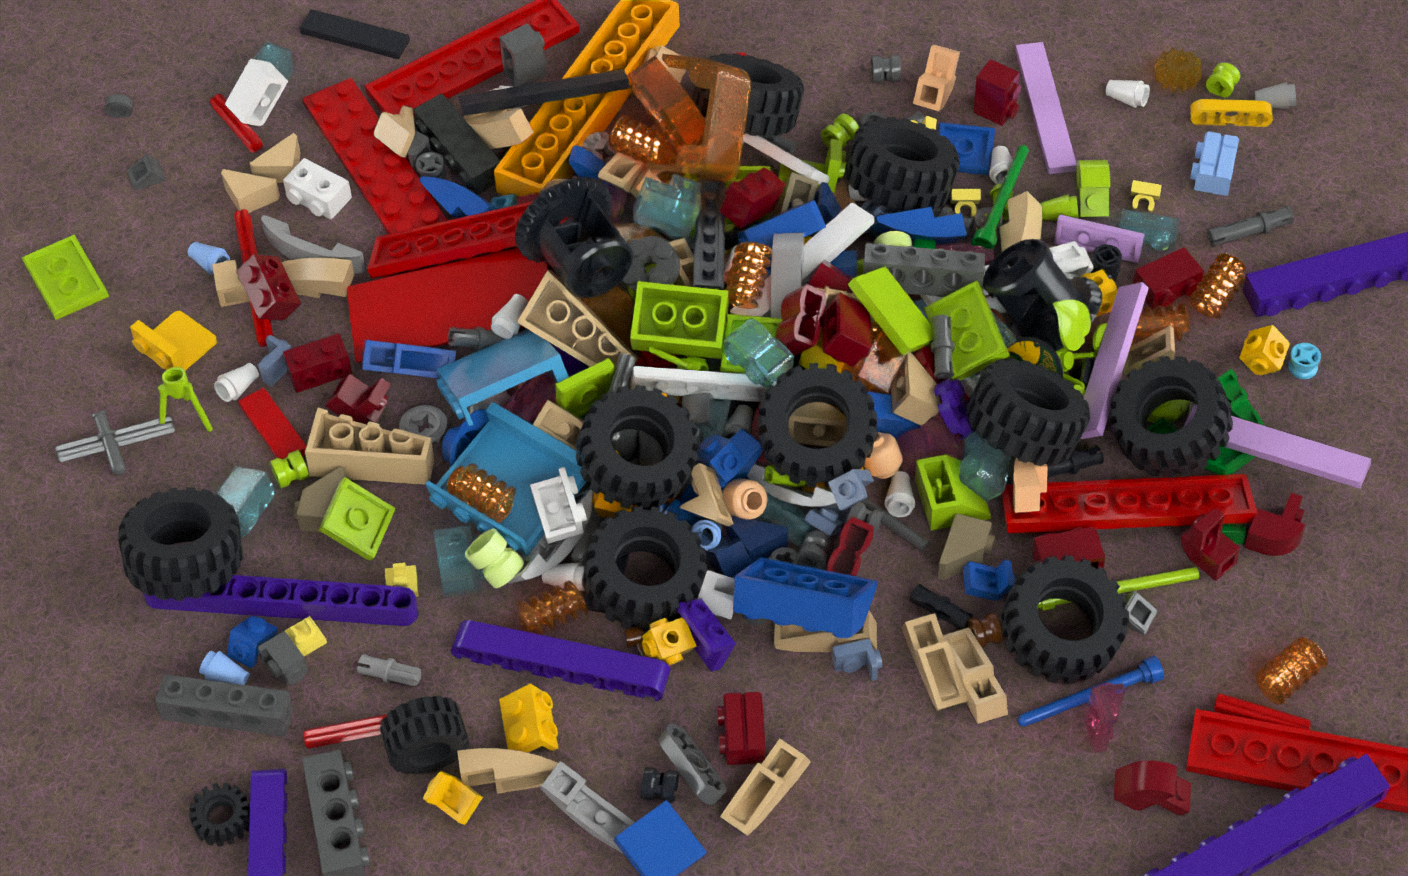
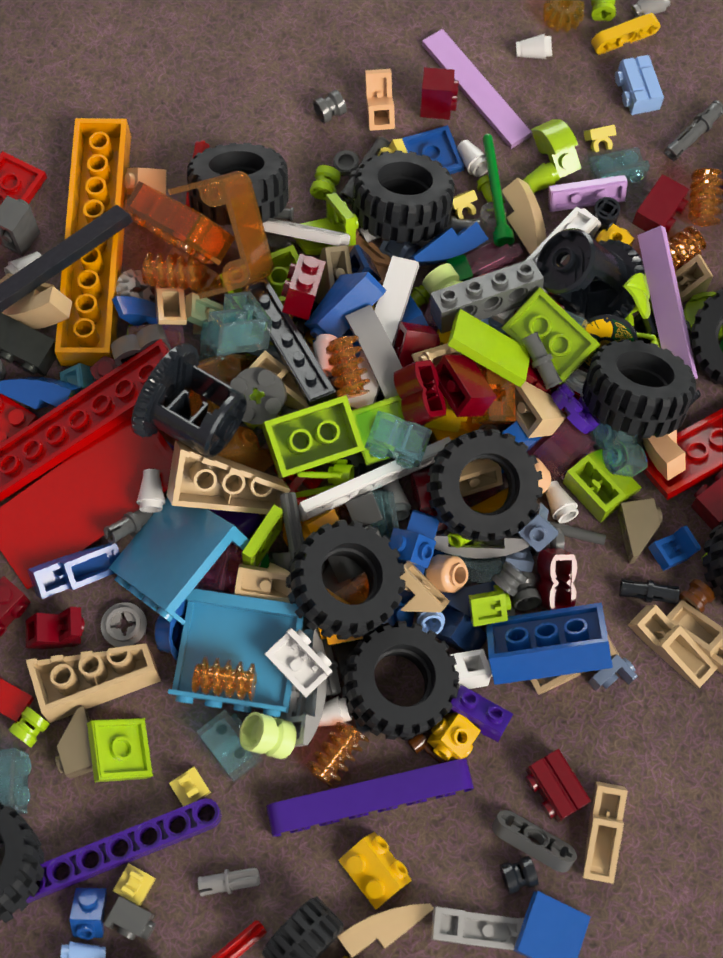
camera: 30 degrees left, 15 degrees up
(767, 542) = (489, 607): none -> lime bracket
(802, 526) = (509, 578): none -> dark grey wheel

